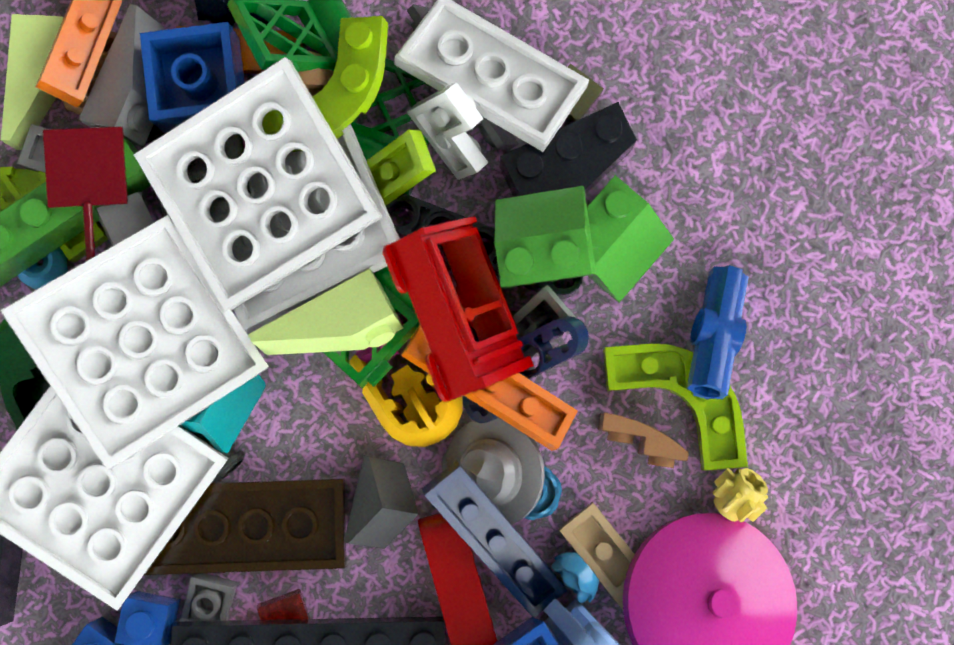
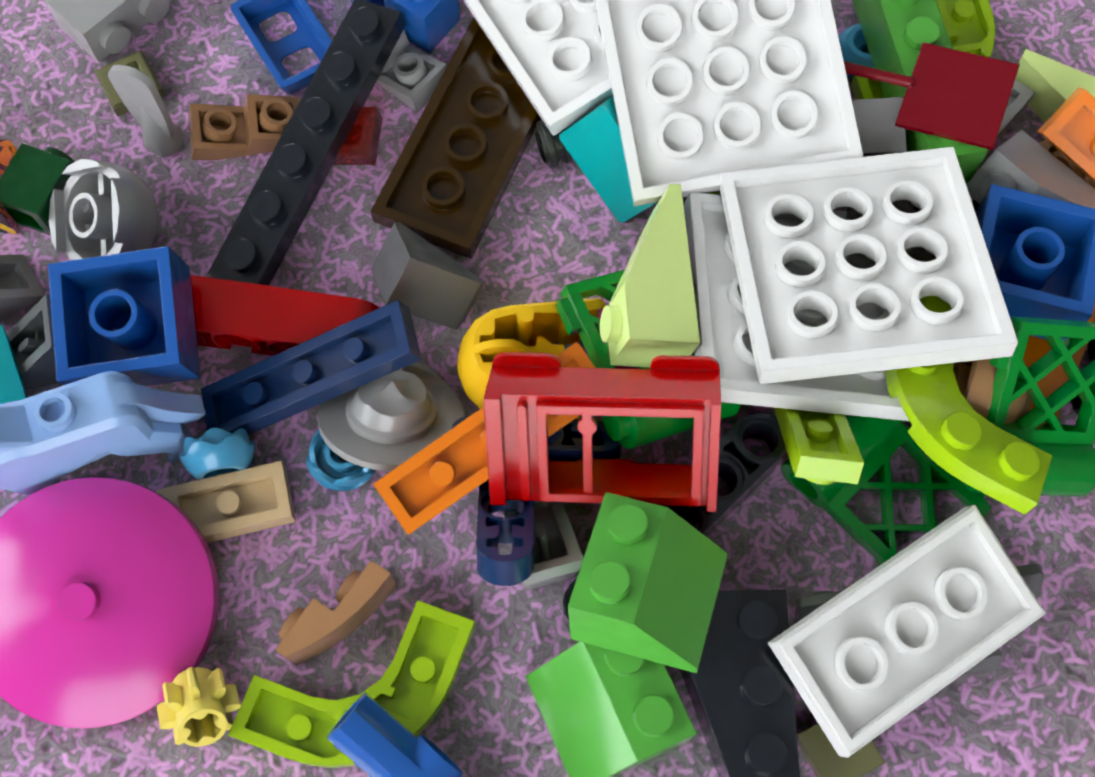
camera: 120 degrees right, 15 degrees down
(444, 123) = (863, 541): white plate -> none

